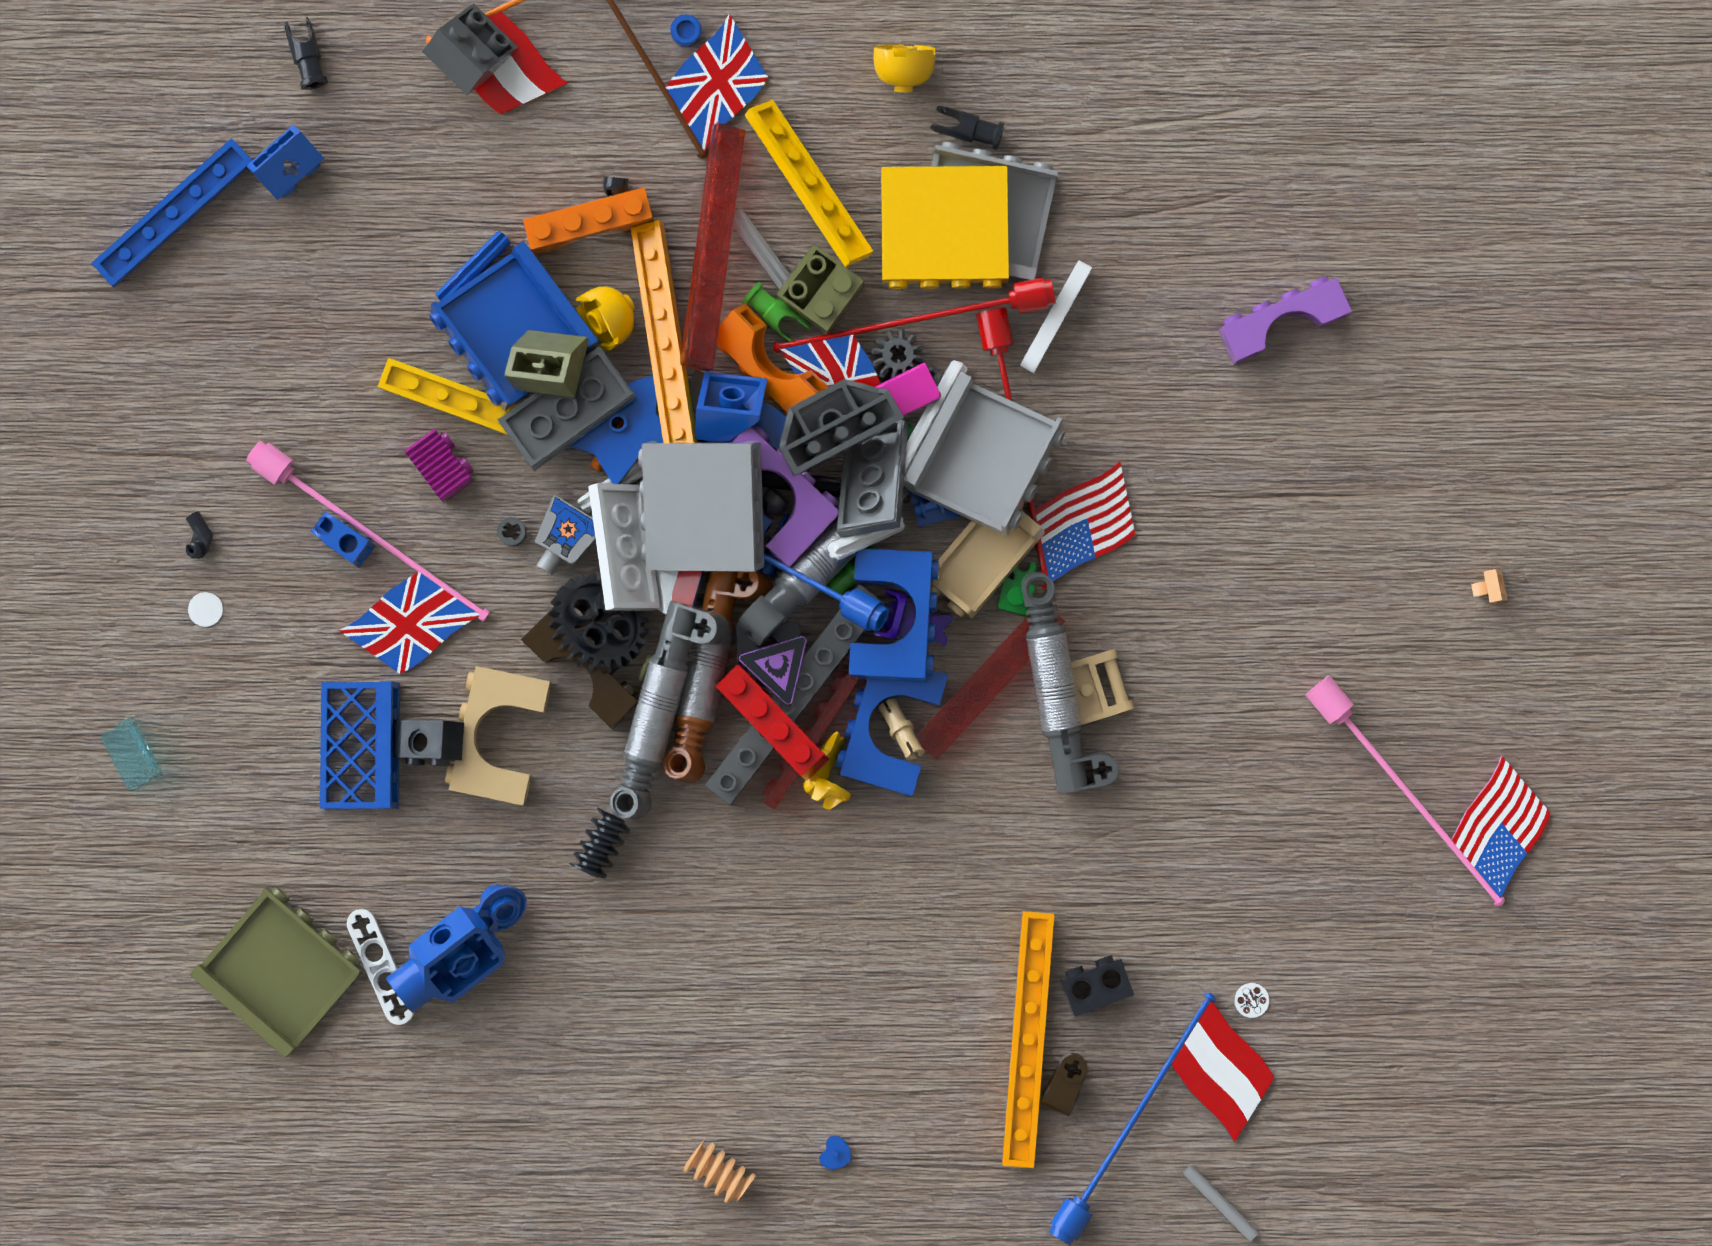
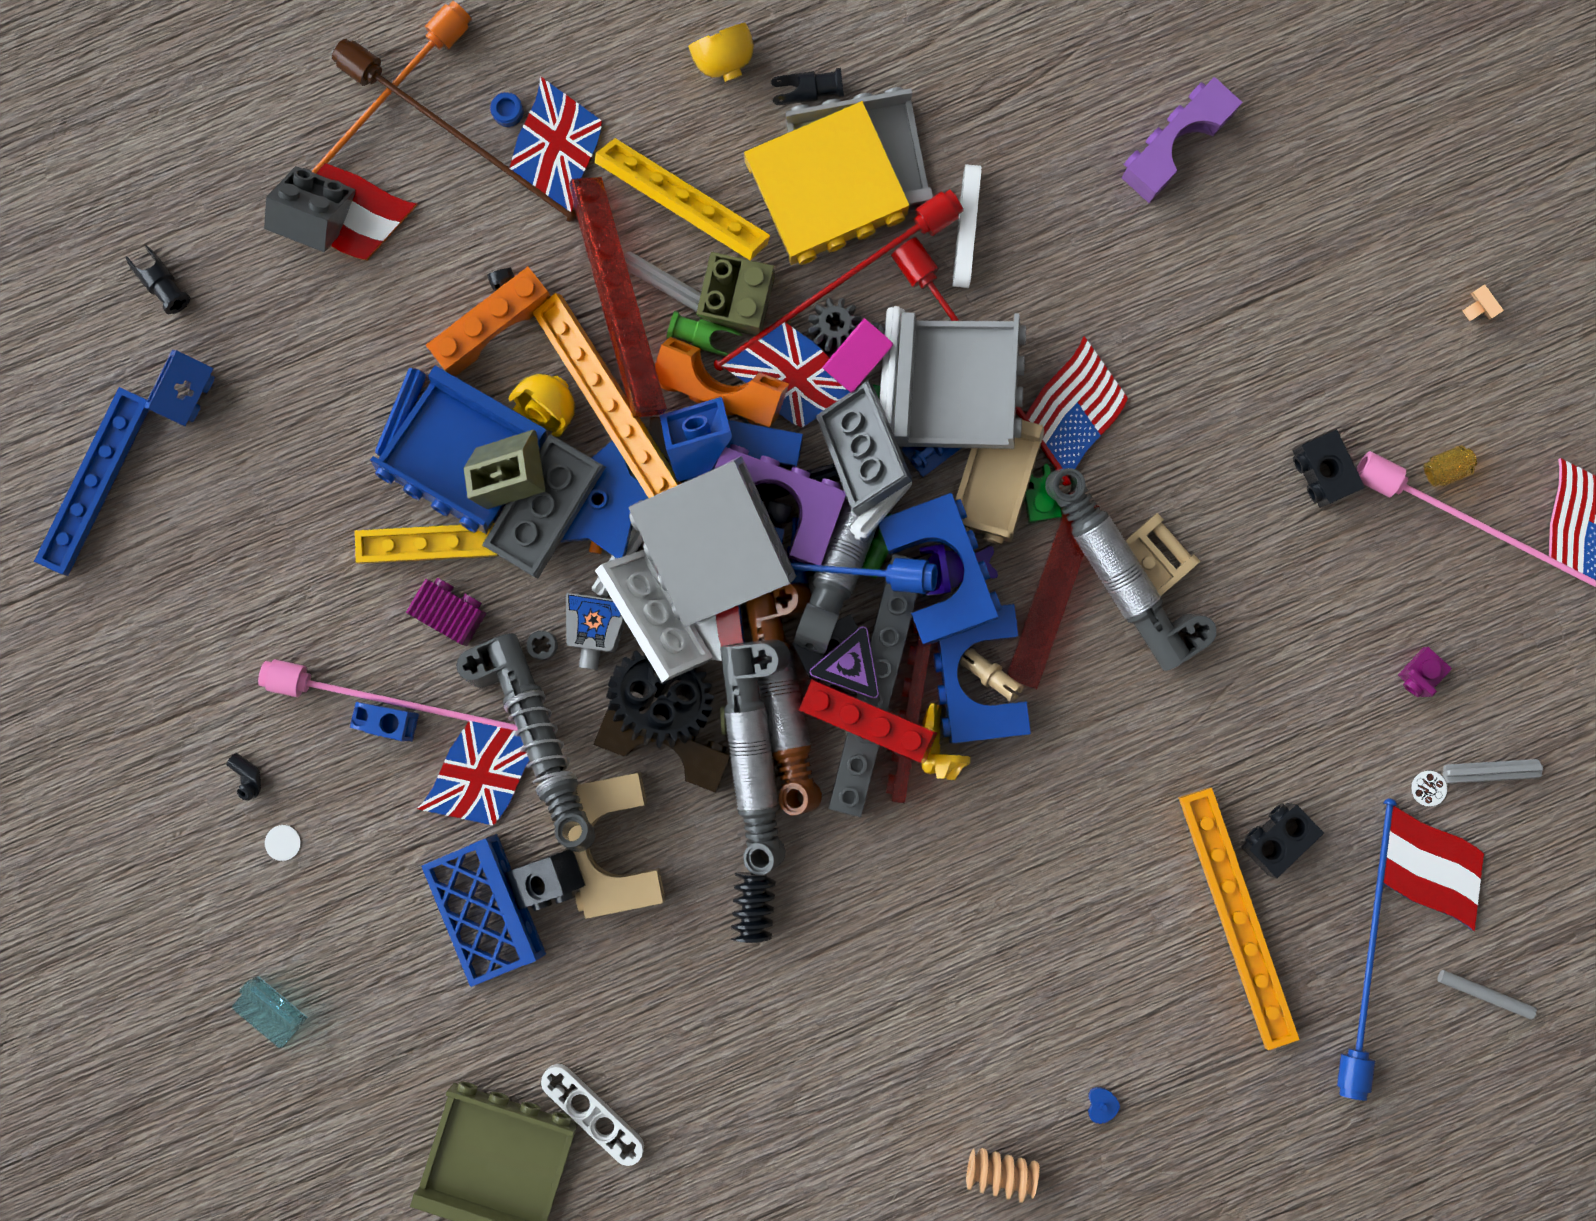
camera: 15 degrees left, 0 degrees up
(458, 949) = (659, 1071): blue brick -> none
(475, 602) = (525, 703): none -> dark grey piece
(835, 423) = (805, 409): dark grey wedge -> none
(1063, 1089) = (1293, 950): dark brown piece -> none
(1291, 895) = (1424, 673): none -> magenta bracket
(1294, 659) = (1331, 451): none -> black brick
(1313, 1008) = (1492, 771): none -> light grey axle
(1397, 719) = (1450, 466): none -> clear yellow brick

